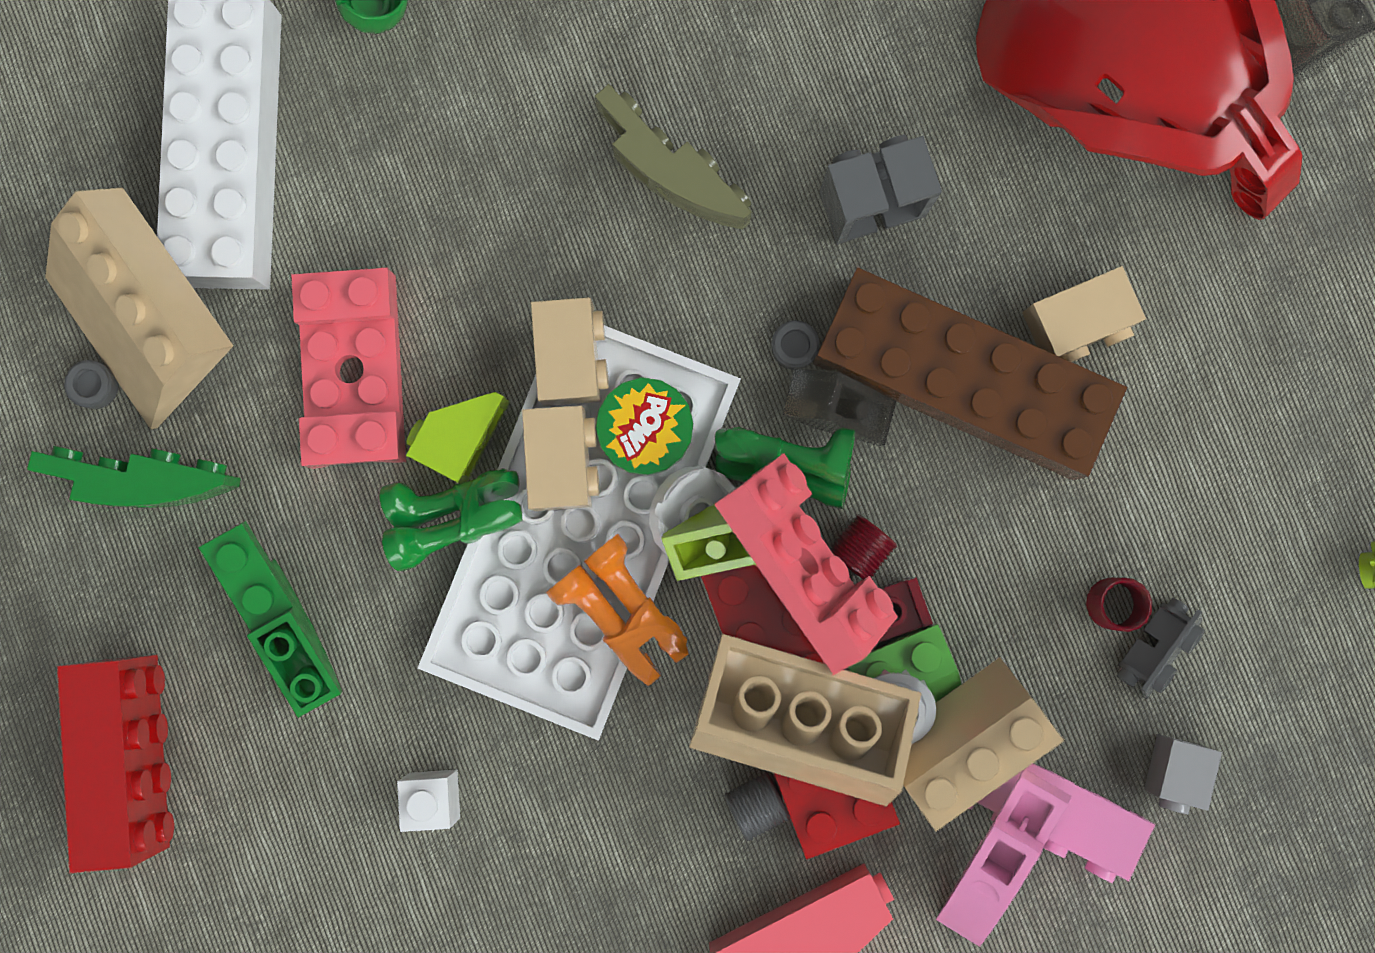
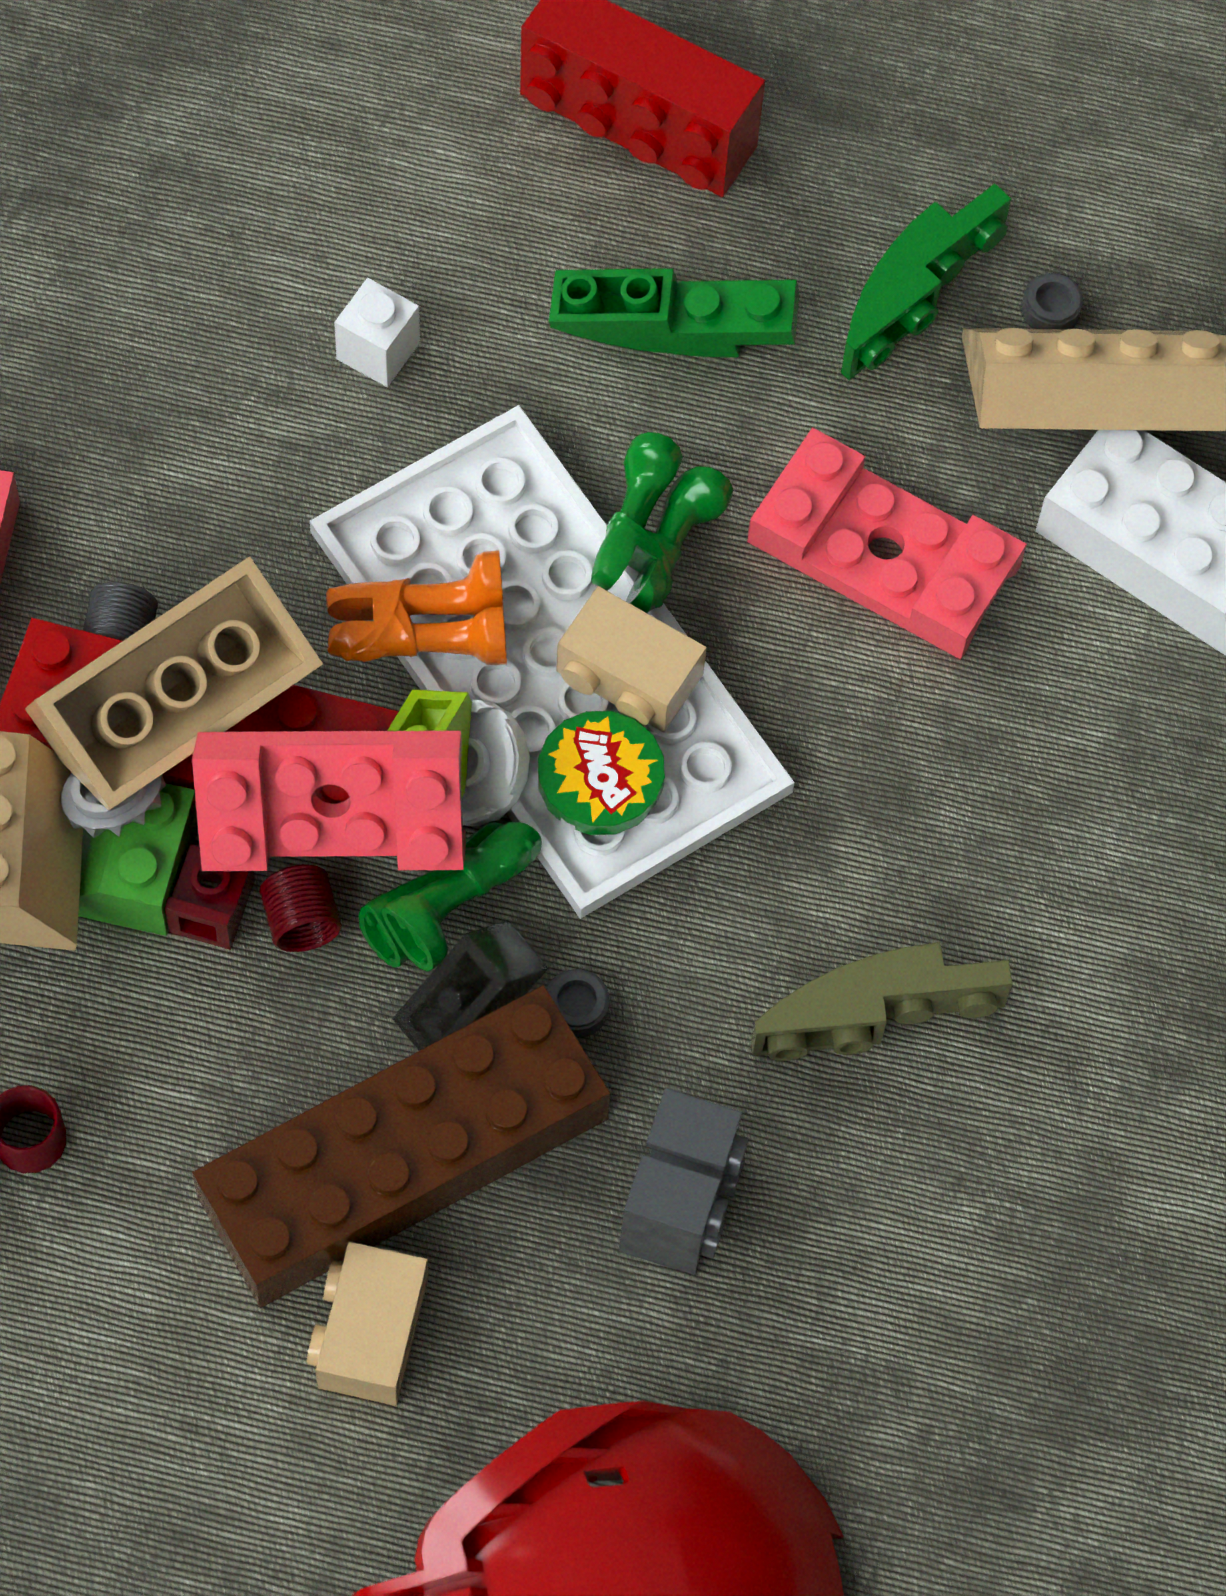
camera: 115 degrees right, 20 degrees down
(456, 435) = (731, 592): lime slope -> none
(567, 351) = (738, 742): tan brick -> none

